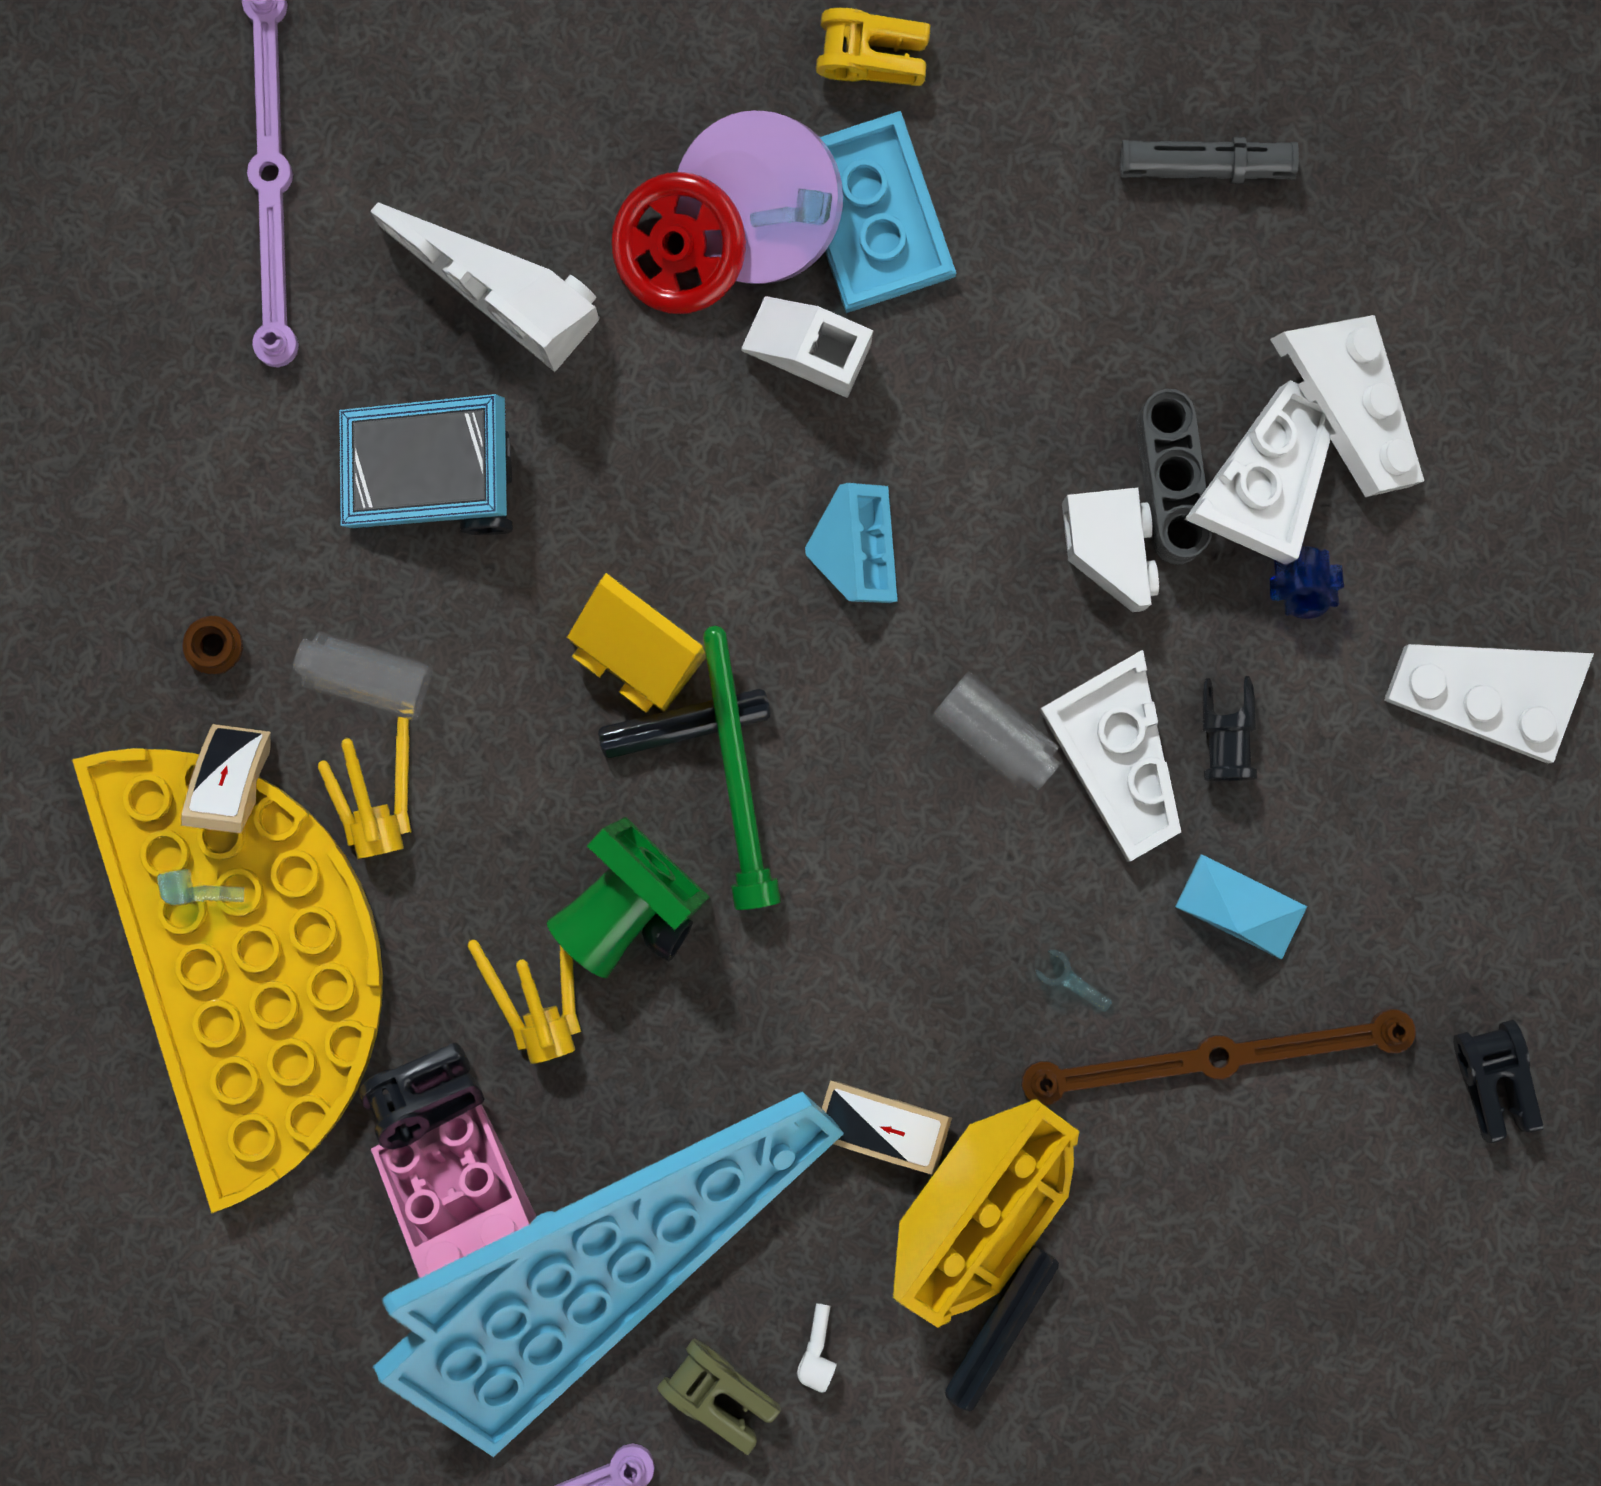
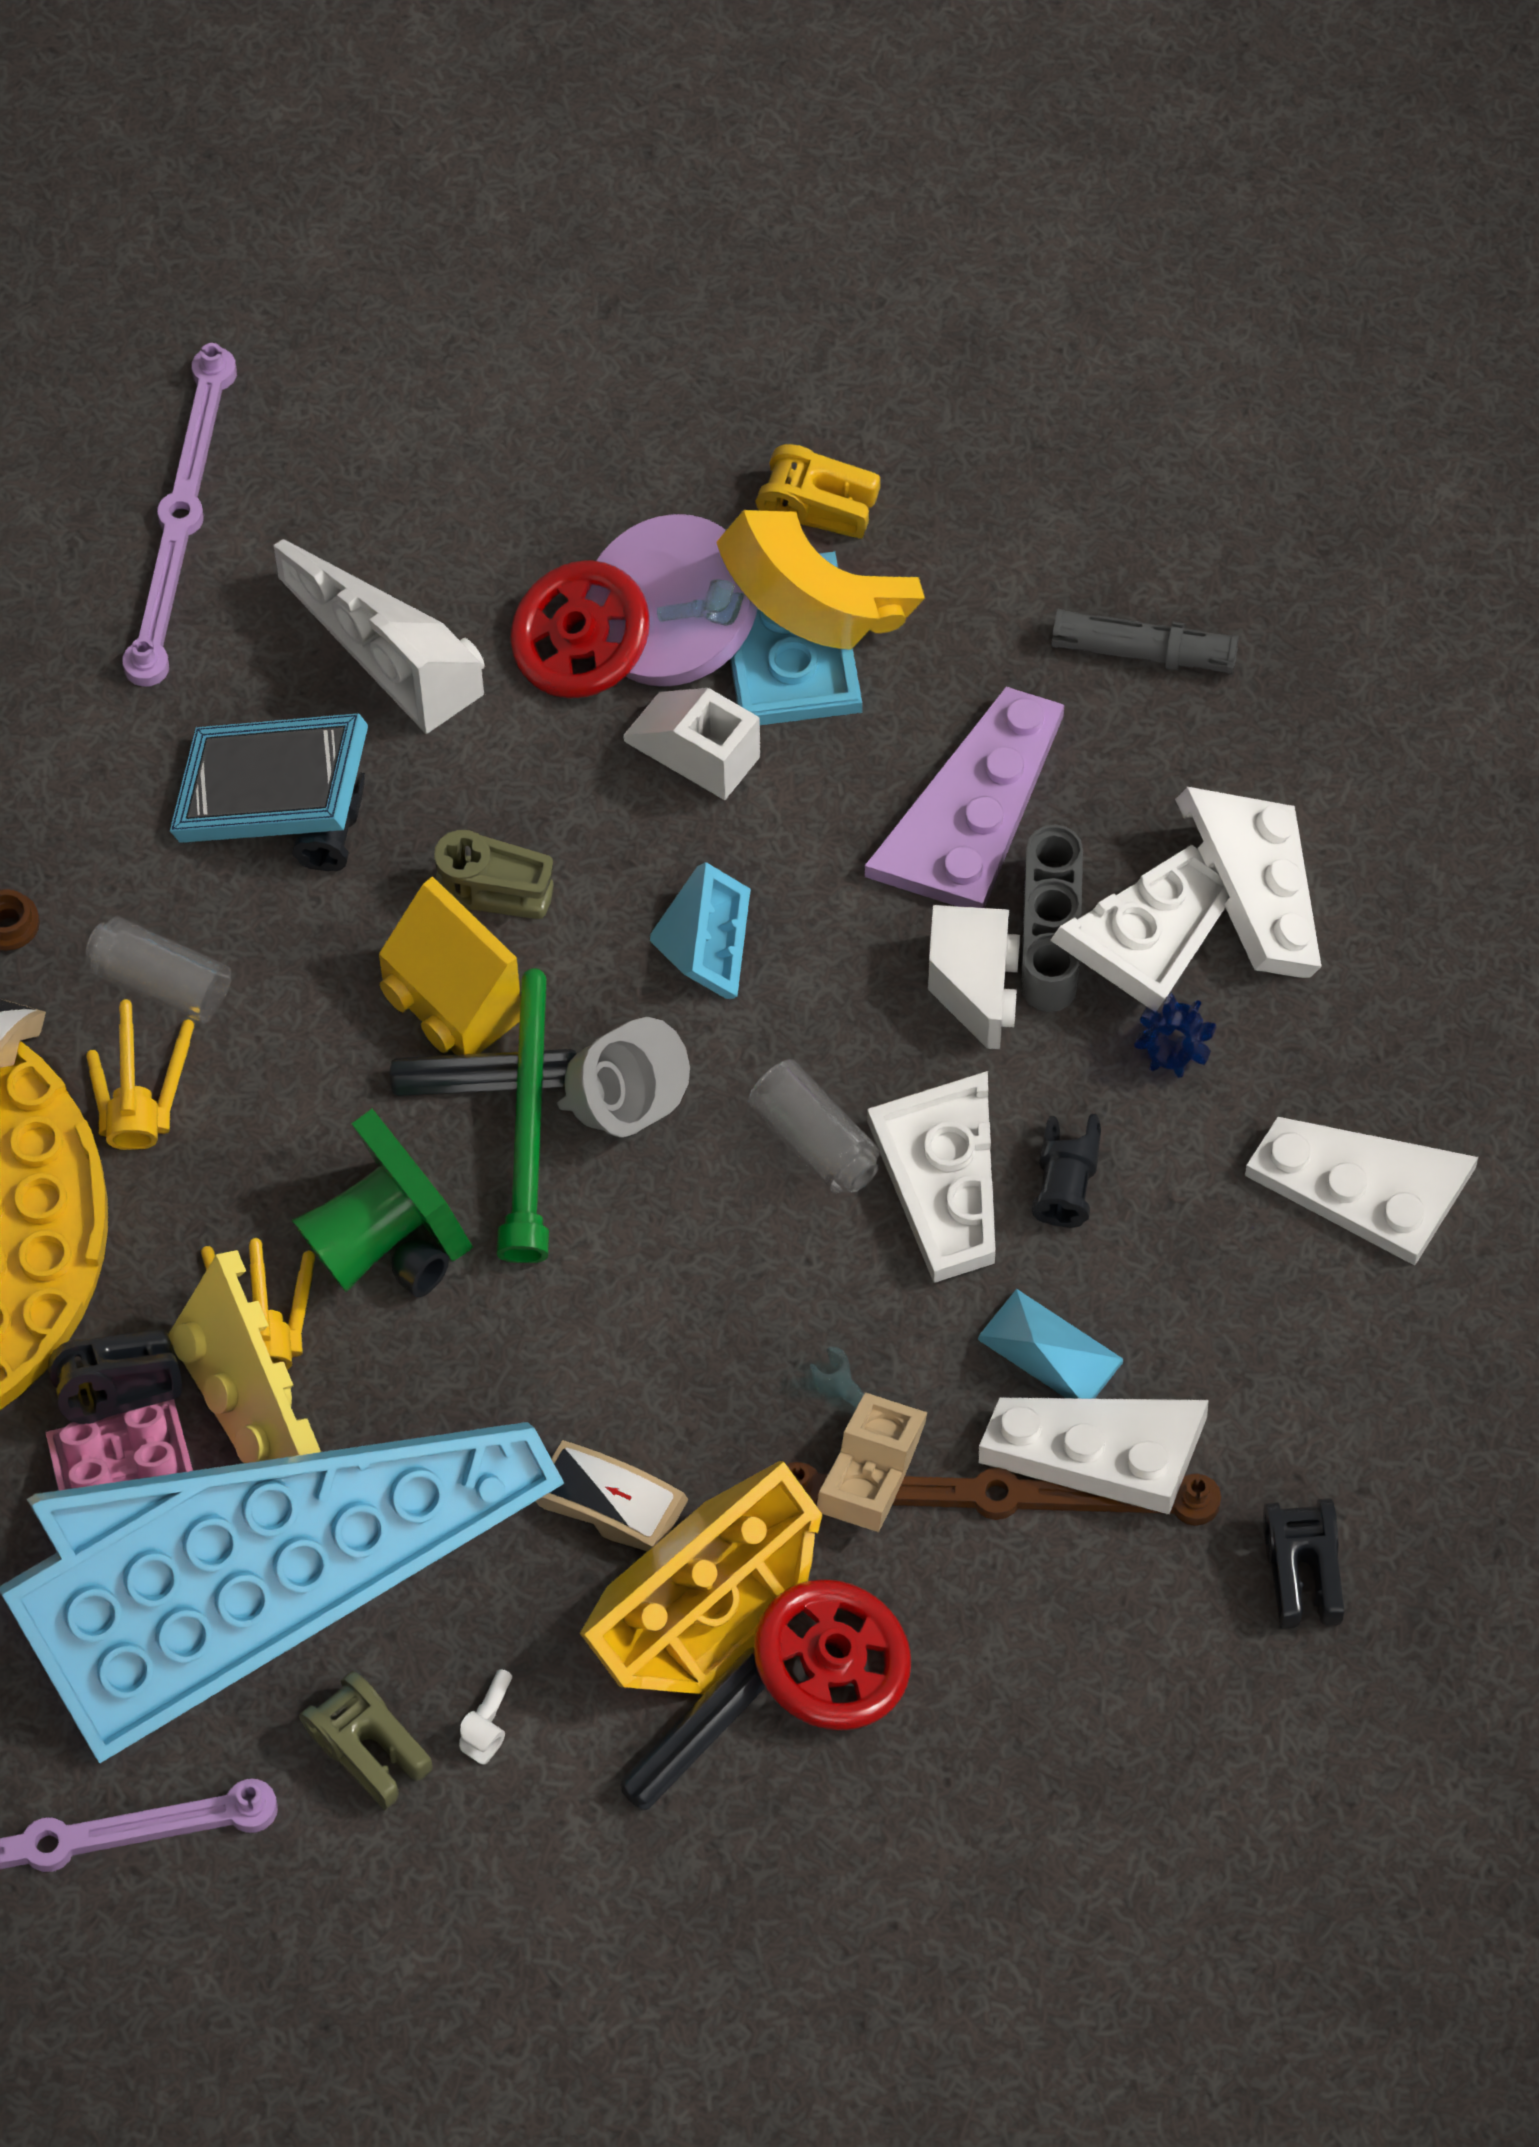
camera: 15 degrees right, 25 degrees down
(533, 1089) = (232, 1367): none -> light yellow wing
(662, 523) = (495, 876): none -> olive piece
(818, 718) = (627, 1077): none -> light grey piece
(885, 181) = (806, 592): none -> yellow arch
(1060, 1250) = (812, 1699): none -> red plate
(1075, 376) = (970, 811): none -> lavender wing
(1108, 1057) = (871, 1462): none -> tan slope
(1303, 1000) = (1098, 1446): none -> white wing

